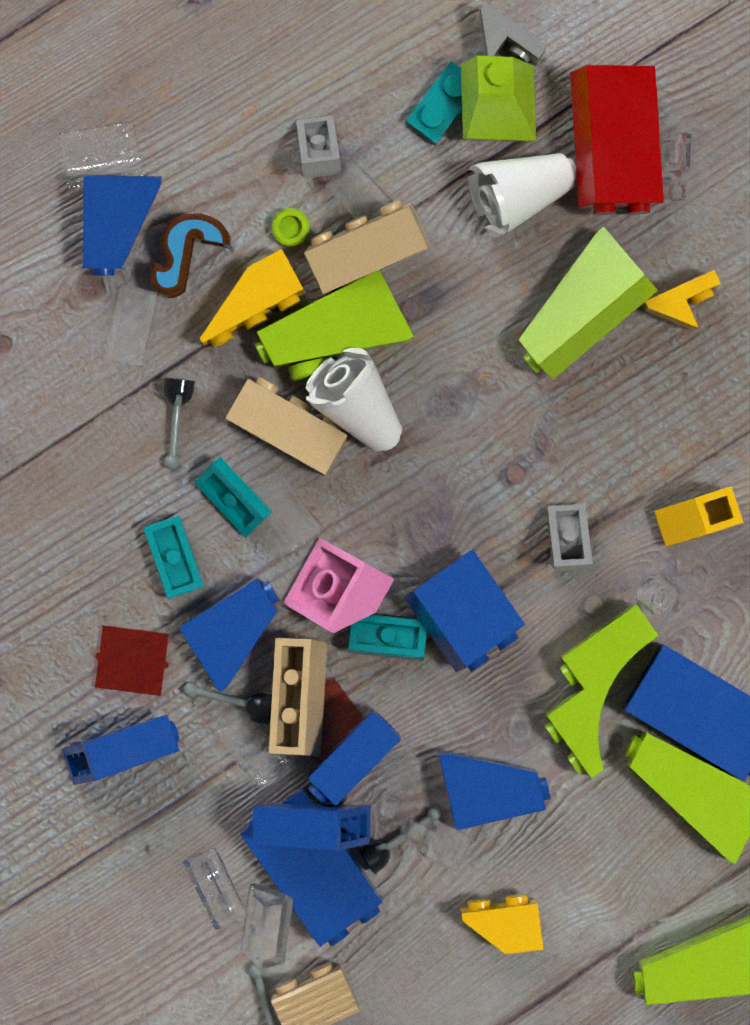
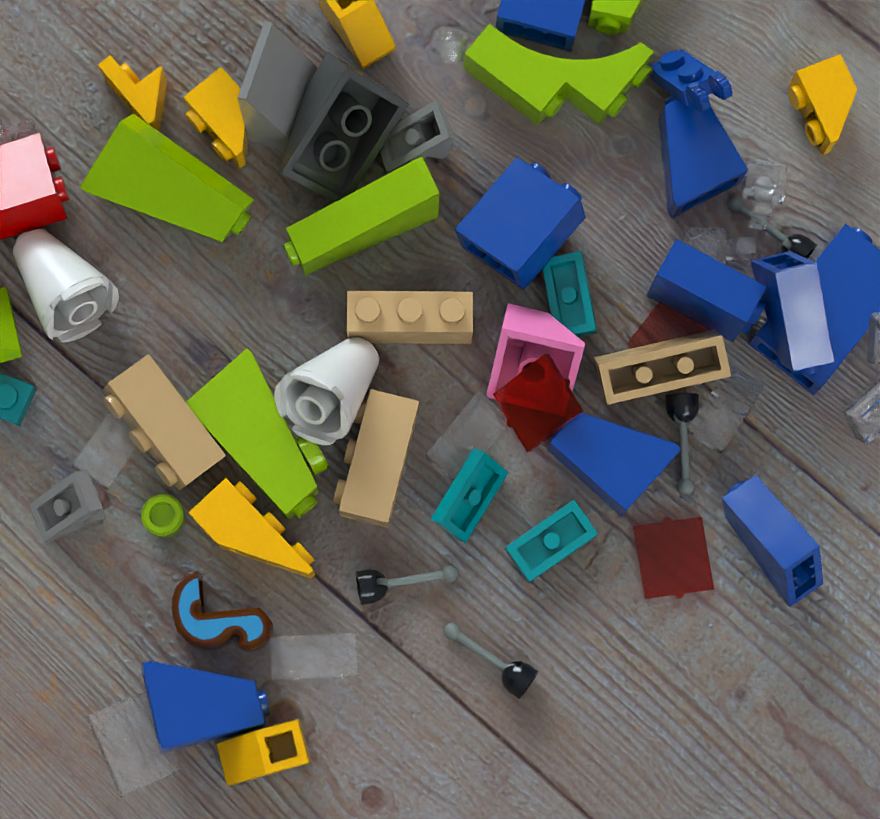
camera: 105 degrees left, 10 degrees down
(60, 262) = (263, 752): none -> yellow slope
(68, 493) = (515, 676): none -> hinge
(295, 578) = (538, 402): none -> clear red piece
(406, 488) = (410, 316): none -> tan brick
(505, 469) = (365, 218): none -> lime slope
(556, 802) = (689, 79): none -> blue hinge
(595, 473) = (339, 129): none -> dark grey slope
(640, 427) = (273, 88): none -> light grey slope
(641, 373) = (216, 109): none -> yellow slope

